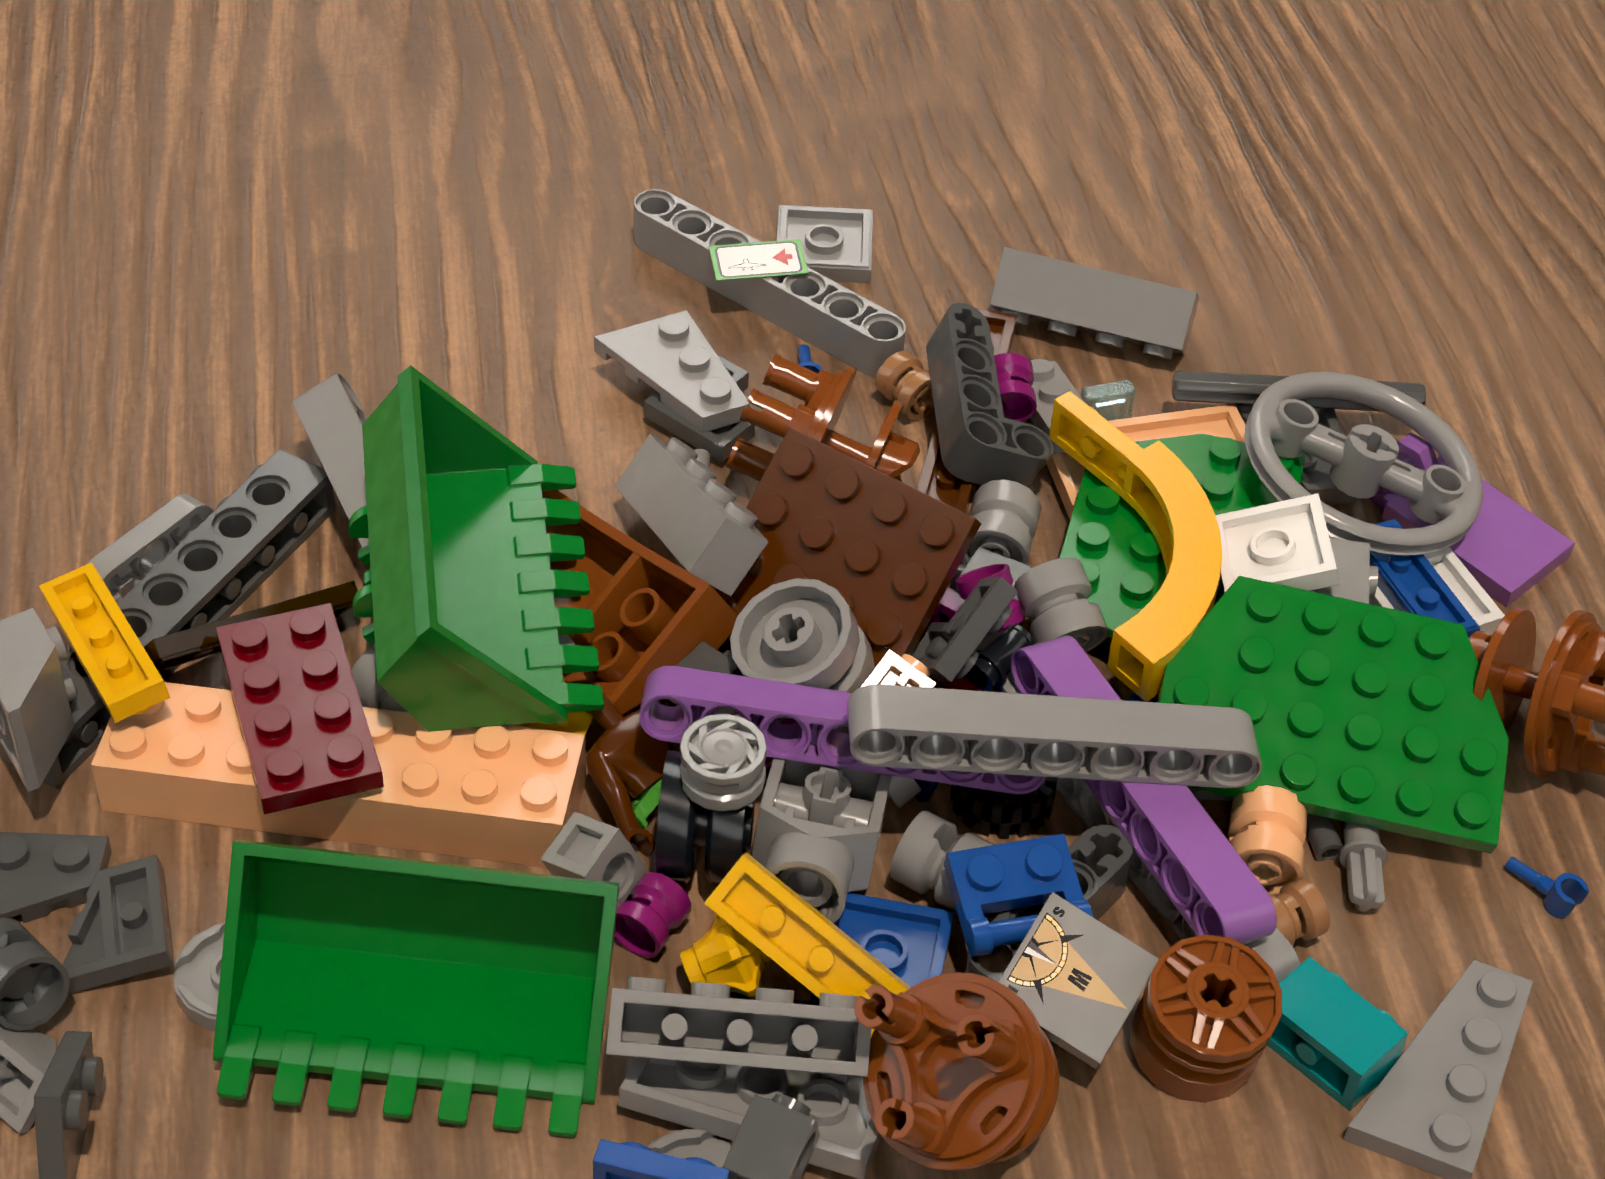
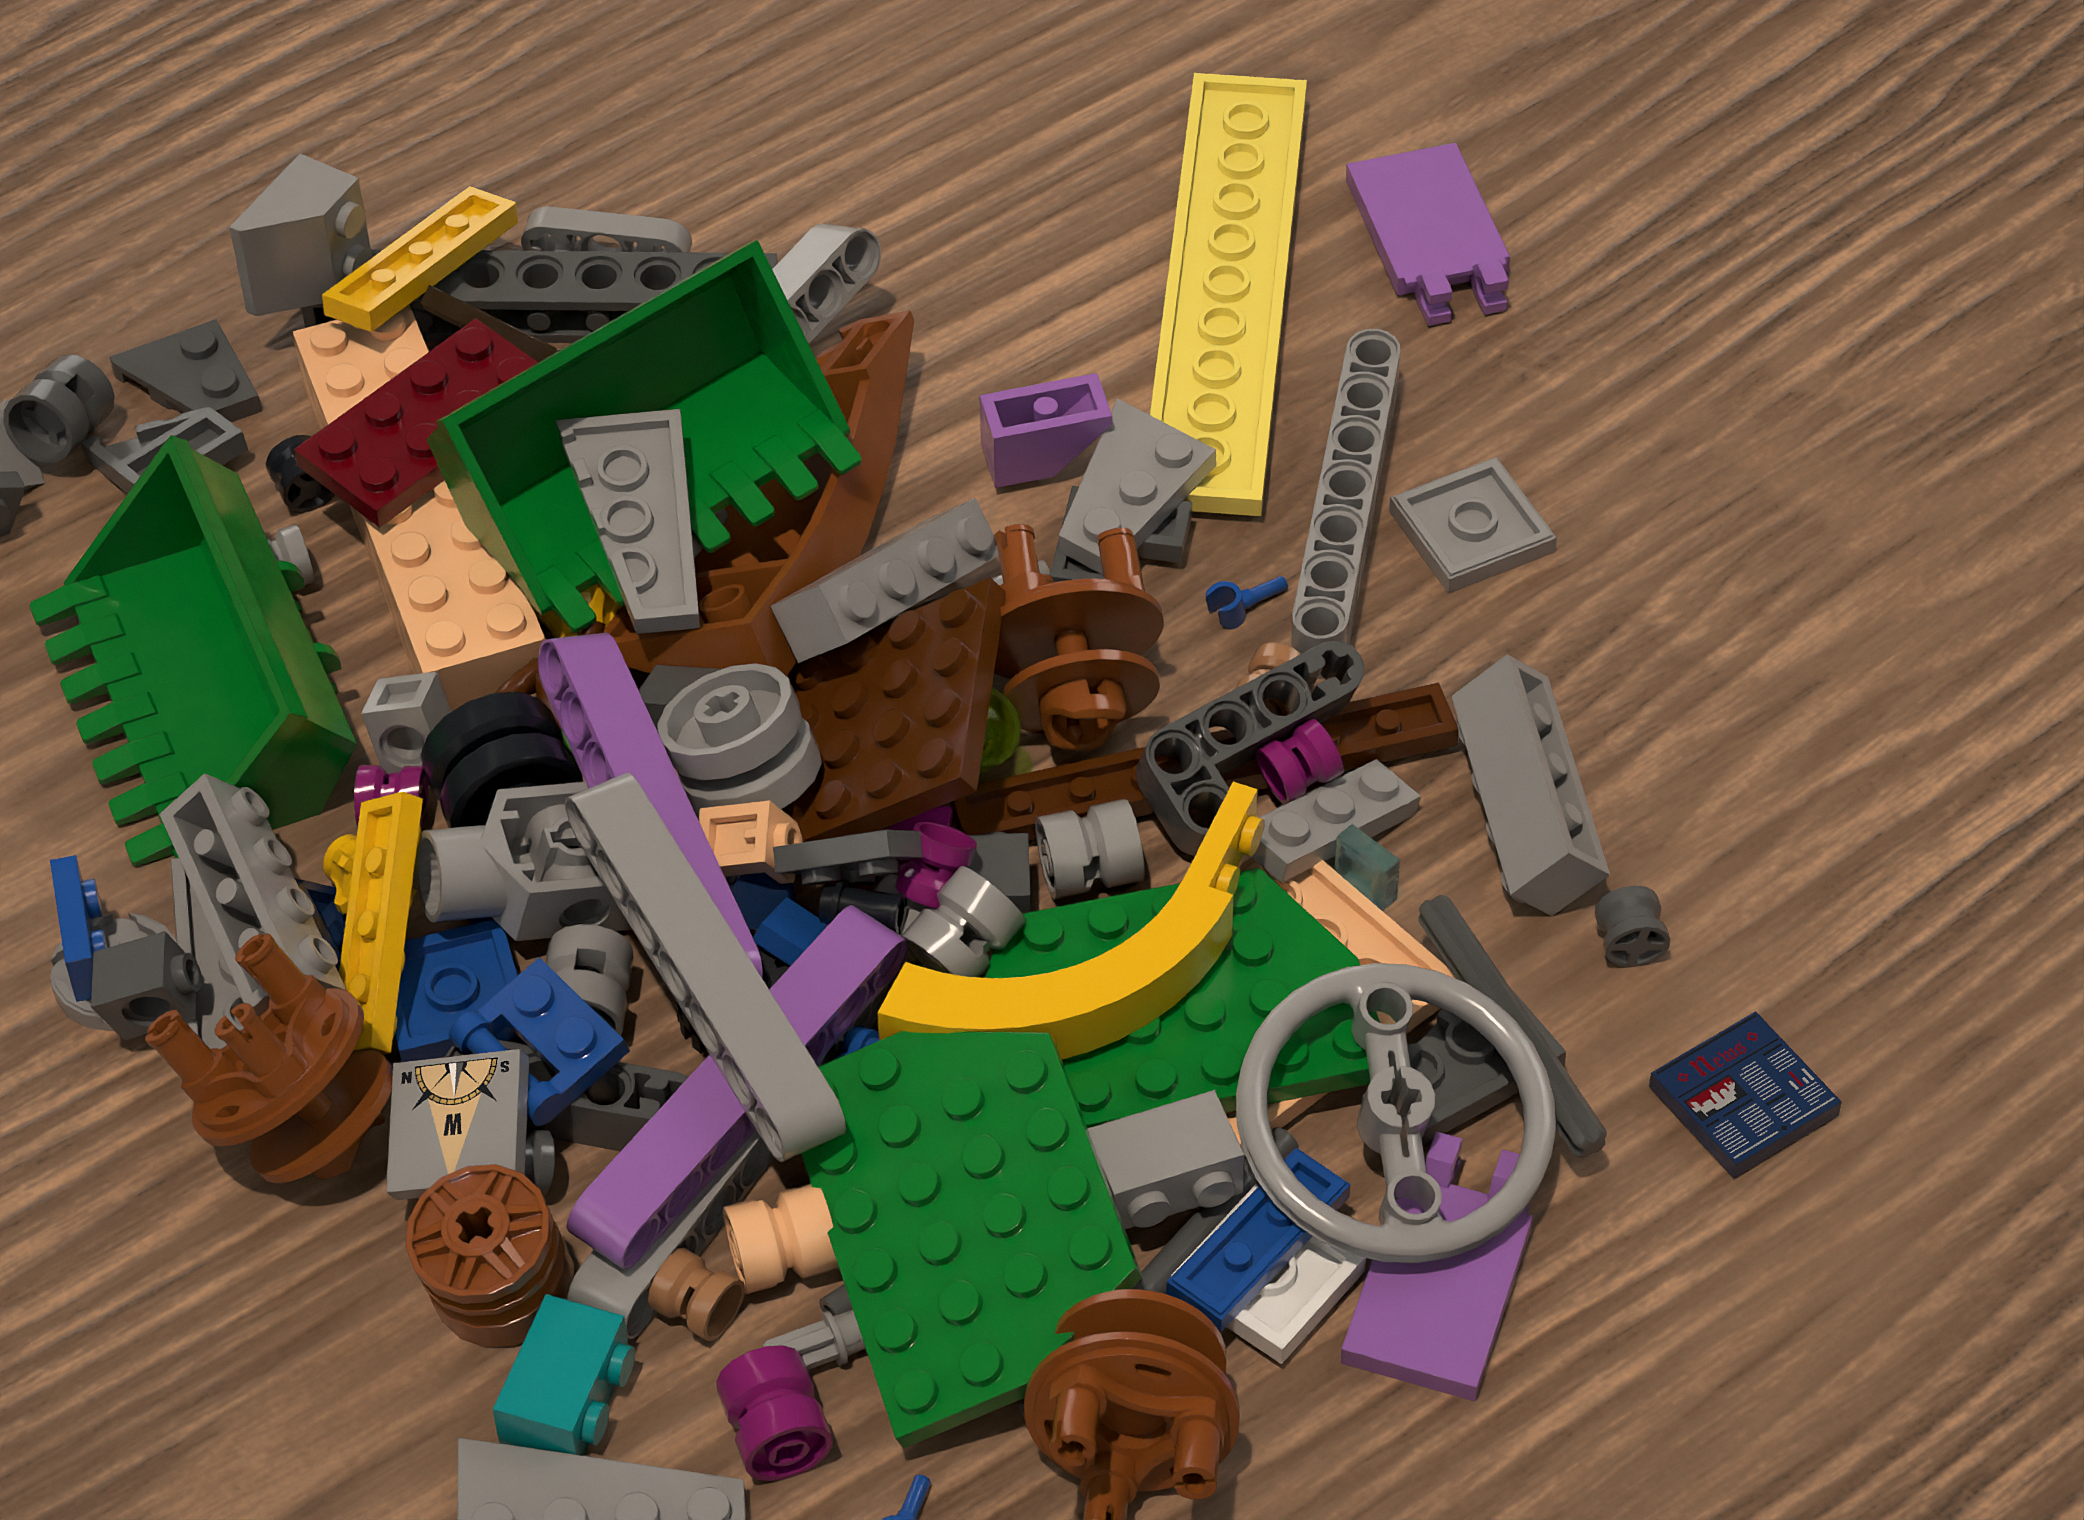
camera: 65 degrees right, 5 degrees up
(223, 829) = (296, 487): none -> black wheel
(496, 246) = (1230, 279): none -> light yellow plate
(534, 597) = (639, 505): none -> light grey wing
(544, 148) = (1431, 228): none -> medium lavender tile
(584, 388) = (1041, 427): none -> medium lavender slope
(723, 765) = (501, 726): light grey wheel -> none
(758, 259) = (1344, 470): white sticker -> none
(1235, 314) = (1632, 926): none -> dark grey wheel
(1278, 544) = (1152, 1065): white plate -> none
(1392, 331) = (1745, 1094): none -> dark blue tile
(1432, 911) = (775, 1410): none -> magenta wheel

